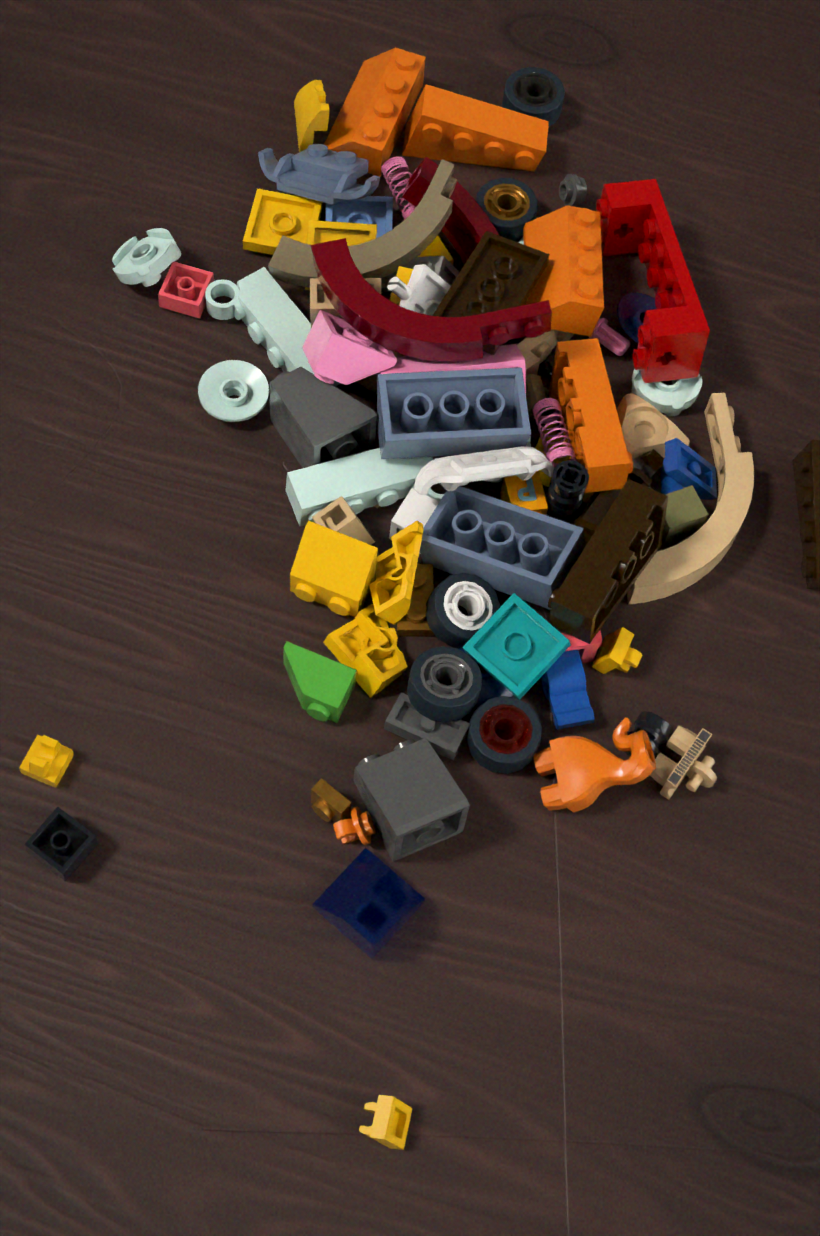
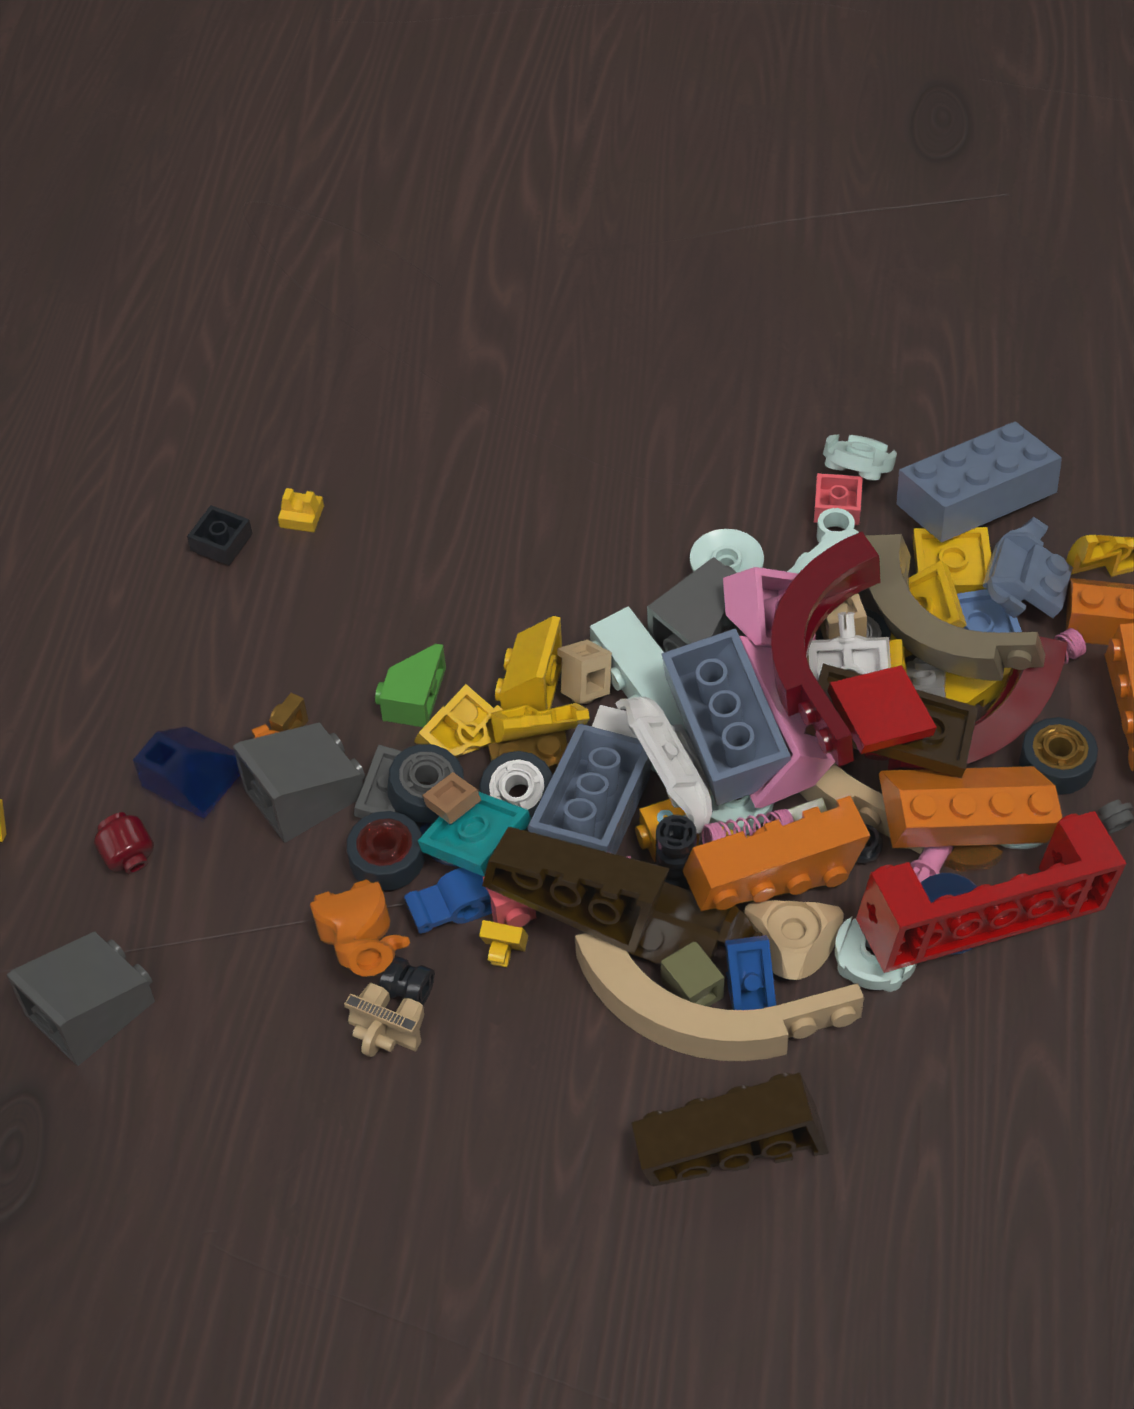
camera: 90 degrees right, 10 degrees down
(212, 176) = (978, 481): none -> sand blue brick
(448, 977) = (123, 843): none -> dark red head
(487, 654) = (451, 798): none -> medium nougat plate
(488, 285) = (881, 709): none -> red tile
(624, 1025) = (82, 994): none -> dark grey slope

